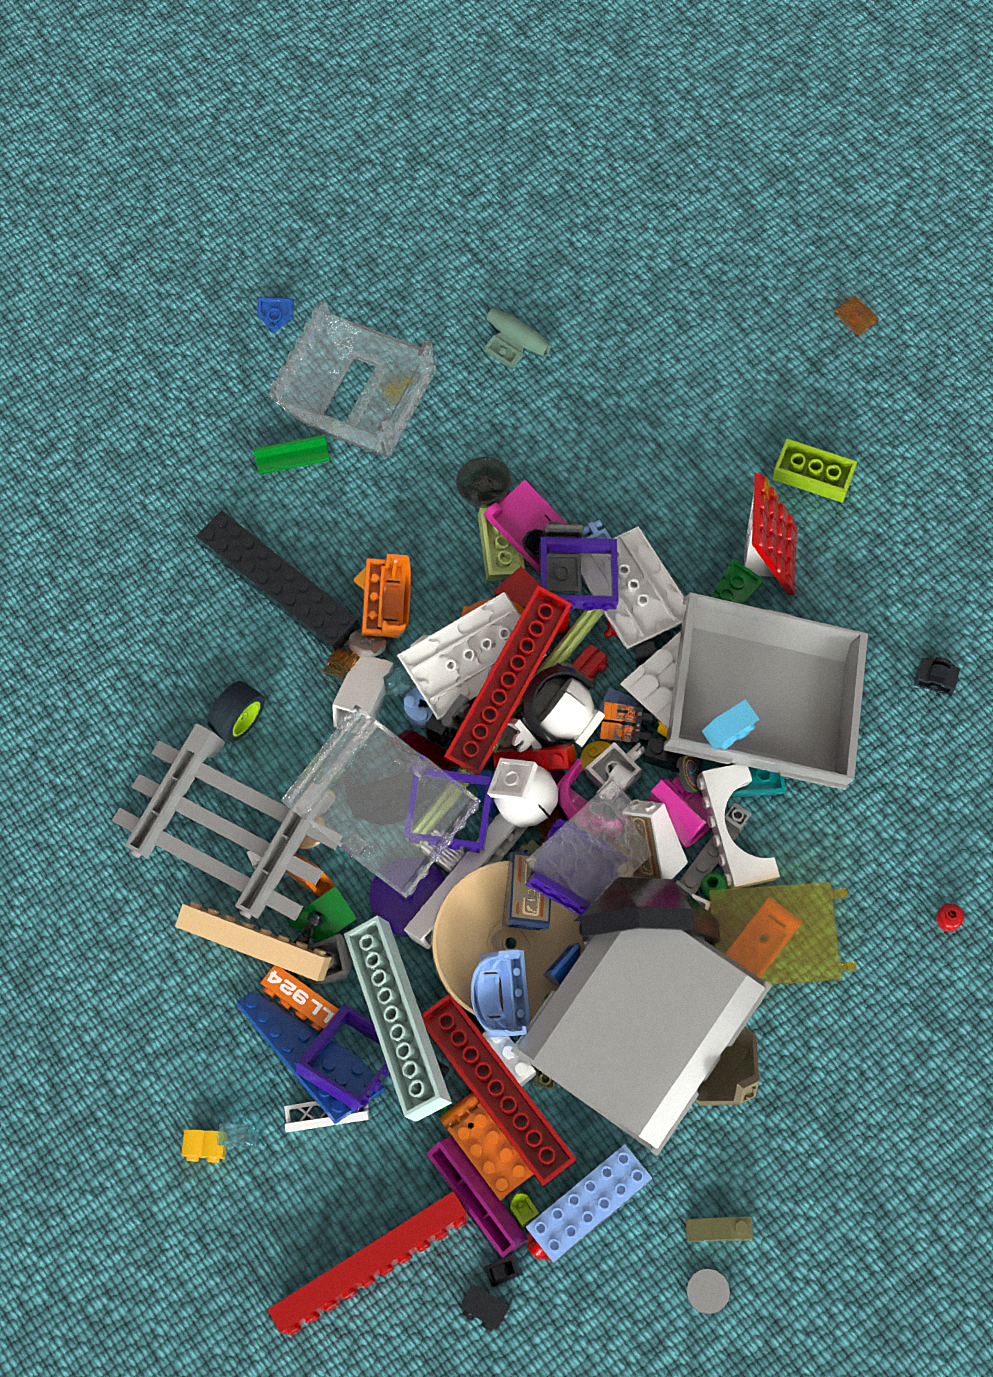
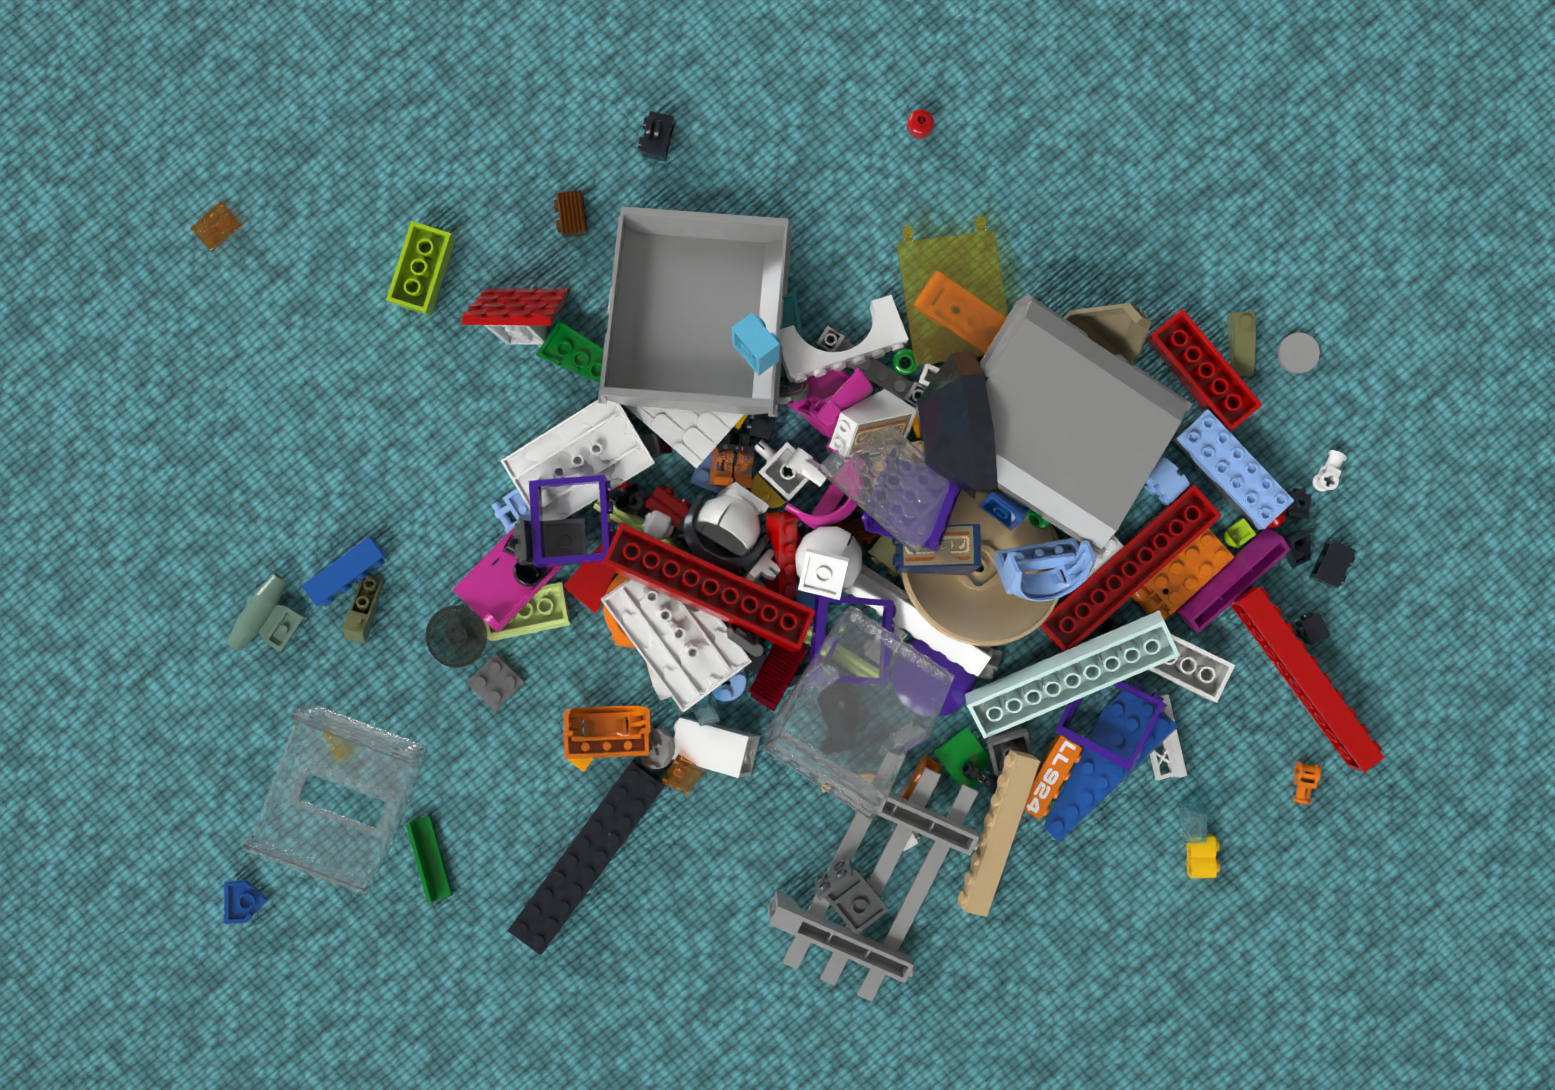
camera: 105 degrees left, 20 degrees up
(212, 797) = (850, 895): none -> dark grey bracket
(236, 711) = (748, 883): black wheel -> none
(267, 1260) = (1305, 781): none -> orange connector
(393, 1145) = (1196, 670): none -> white brick
(416, 951) = (992, 665): none -> light grey piece
(421, 1278) = (1311, 628): none -> black brick
(440, 516) = (495, 682): none -> flat silver plate
(514, 413) = (363, 610): none -> olive slope
(541, 1274) = (1293, 509): none -> black brick
(548, 400) = (345, 571): none -> blue brick
(570, 650) = (657, 525): none -> white head
(582, 1131) = (1166, 481): none -> light blue brick
(583, 1314) = (1329, 472): none -> white connector
(594, 634) = (633, 499): none -> black hair
(692, 1183) = (1203, 370): none -> red brick
(863, 598) = (571, 214): none -> reddish brown brick

